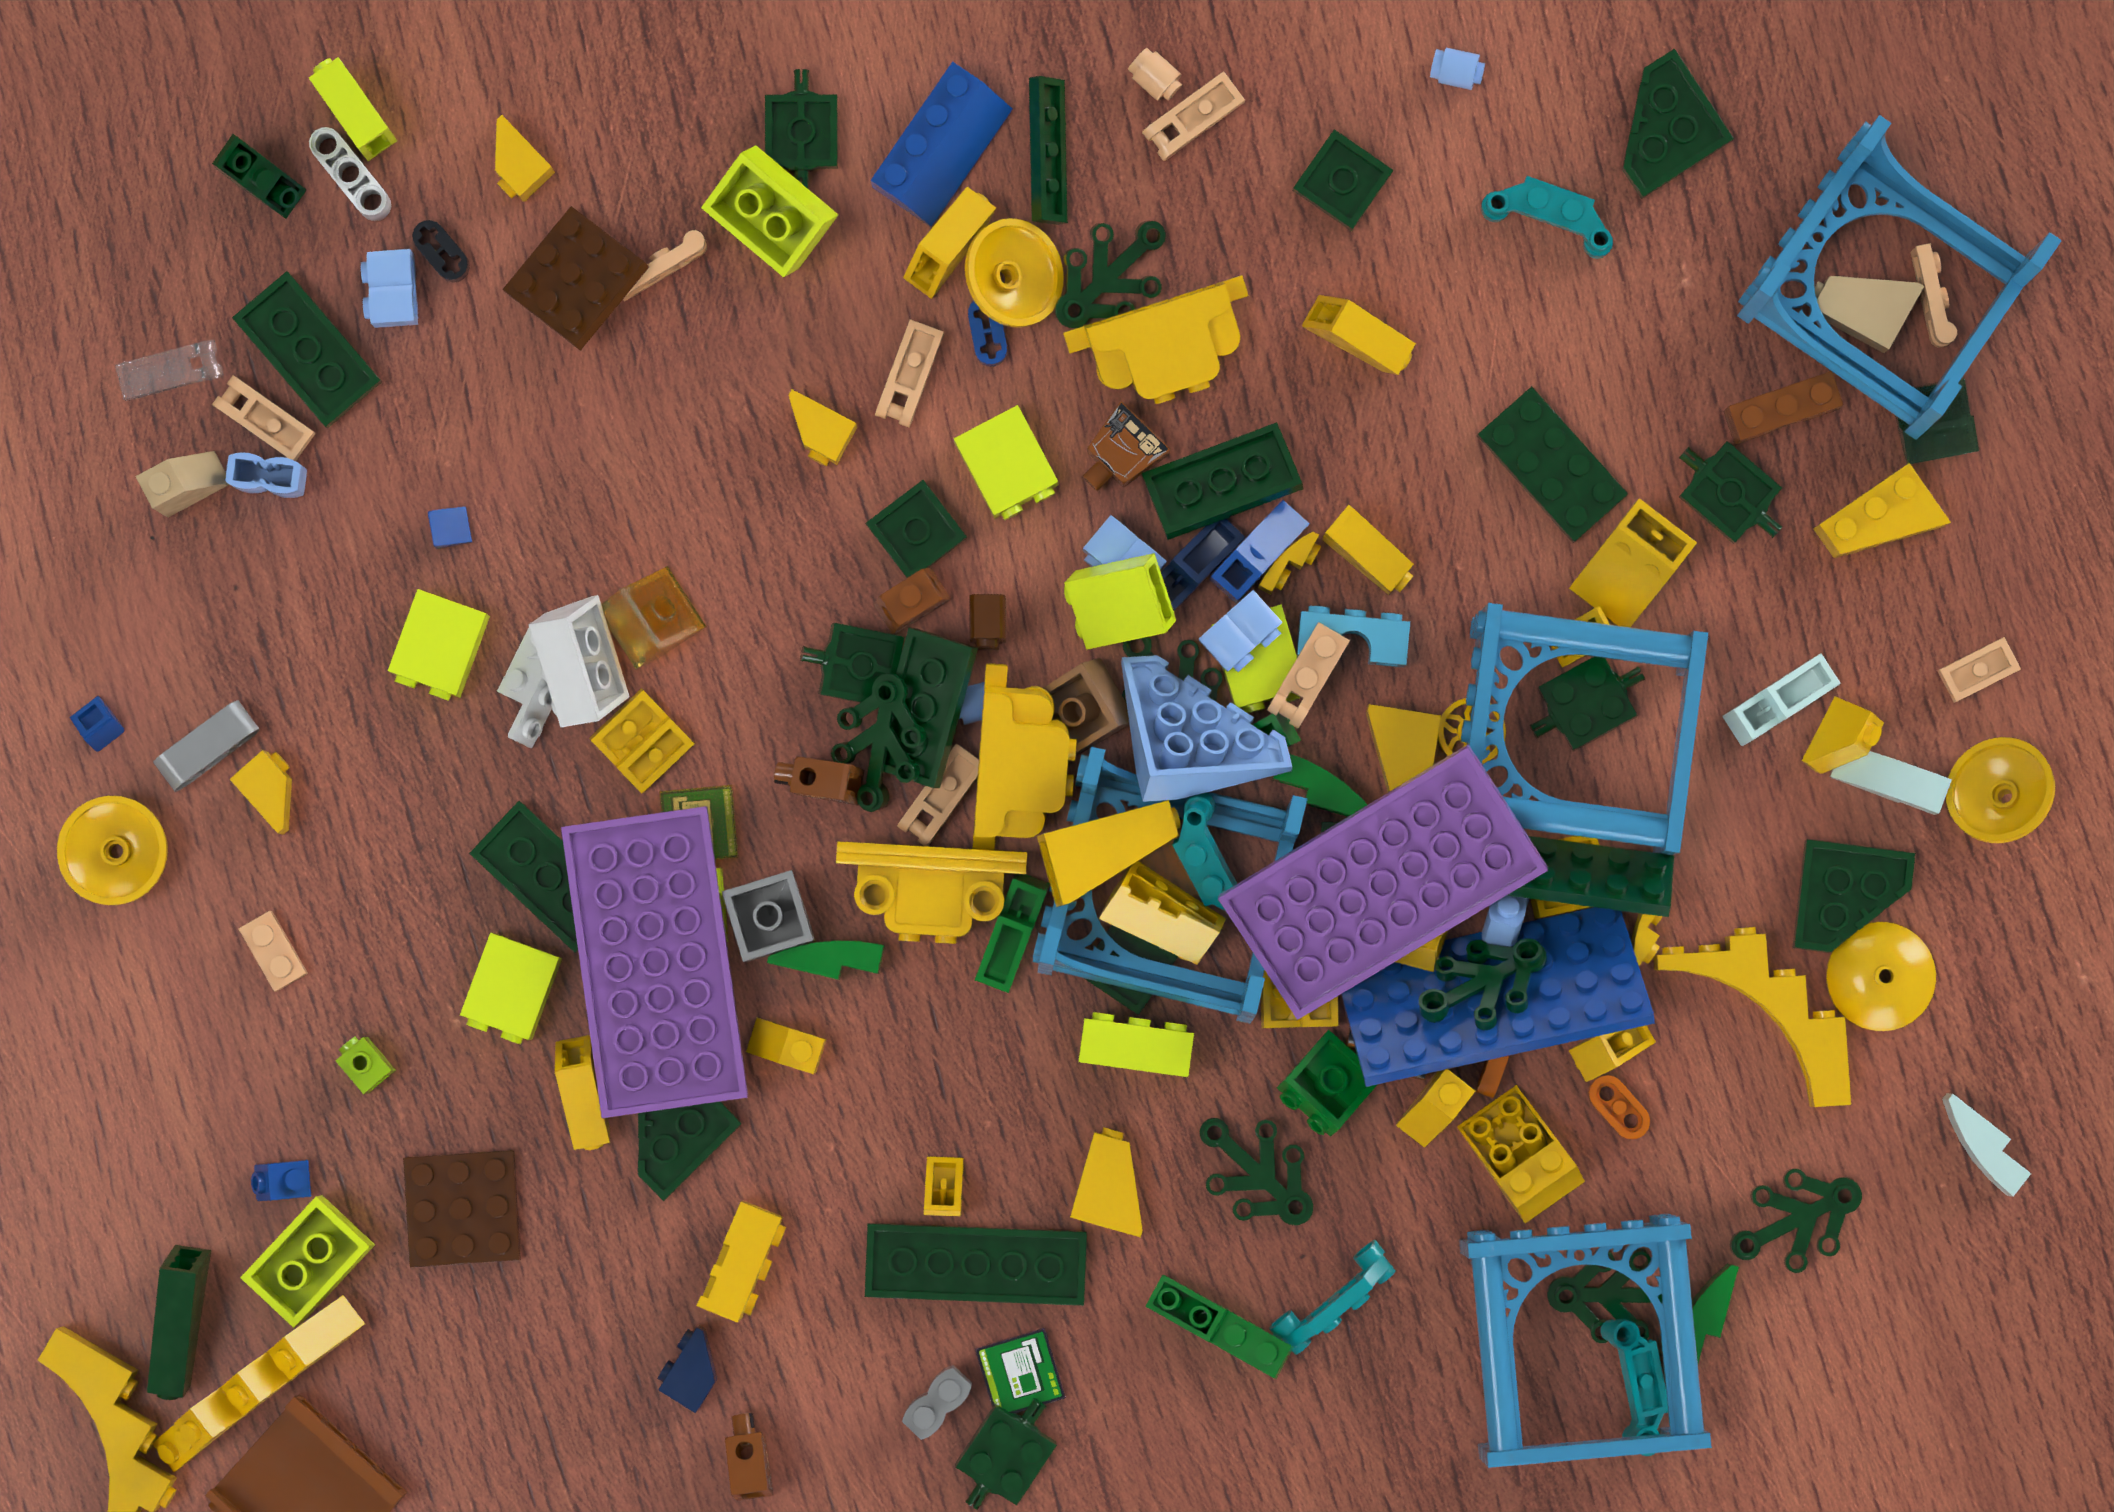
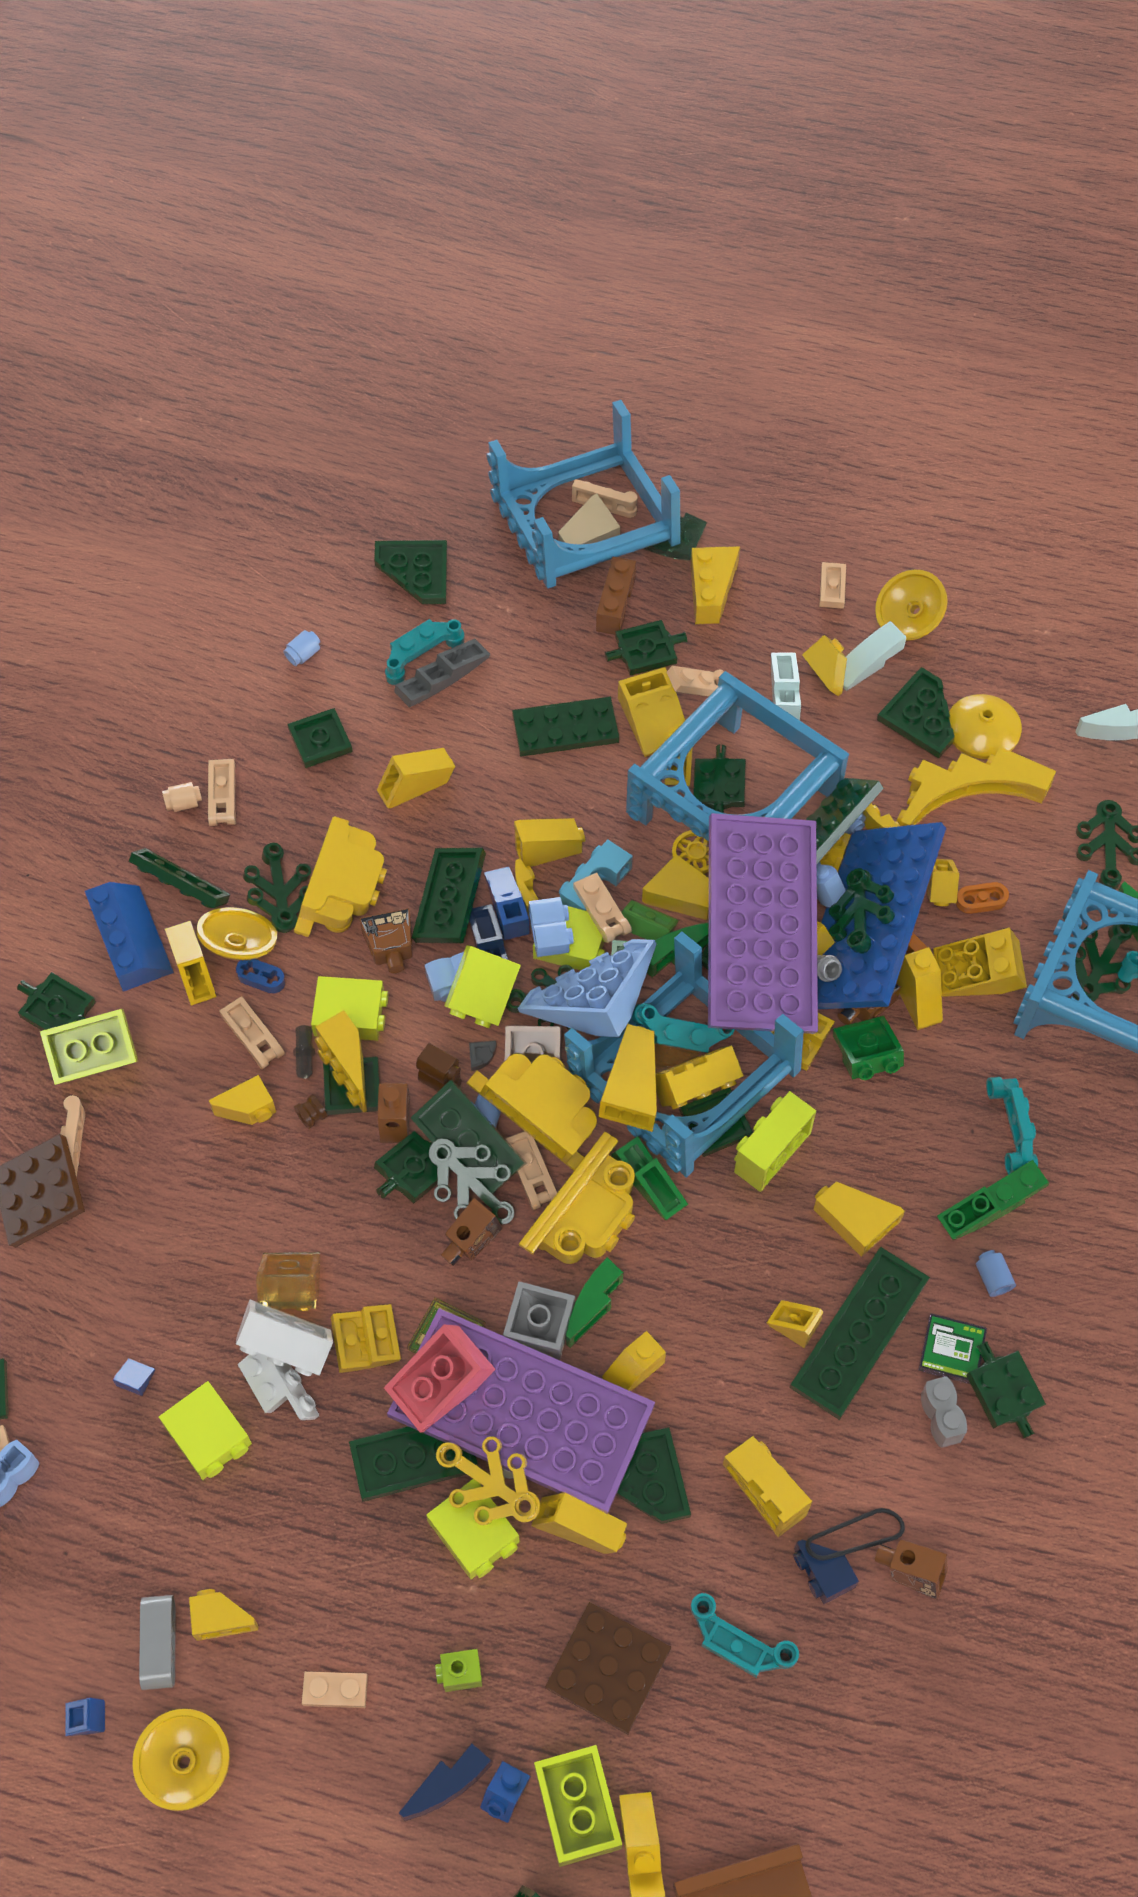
camera: 60 degrees left, 25 degrees down
(253, 1120) = (446, 1783): none -> dark blue slope
(556, 984) = (493, 1484): none -> yellow plant
(560, 1325) = (737, 1645): none -> teal plate
(627, 859) = (439, 1377): none -> coral slope
(733, 1395) = (857, 1548): none -> black piece
(855, 506) = (310, 1111): none -> reddish brown wheel
(922, 449) = (304, 1051): none -> clear smoke axle
(935, 507) = (342, 1049): none -> yellow slope
(1049, 648) = (481, 1054): none -> dark grey tile
(1134, 1373) = (995, 1273): none -> medium blue brick
(1261, 1175) = (902, 1121): dark green plant -> none
(1339, 732) = (648, 922): none -> bright green slope
(1384, 985) = (828, 967): none -> light grey cone
(1532, 264) = (442, 673): none -> dark grey slope
(1710, 593) = (693, 680): none -> light nougat plate

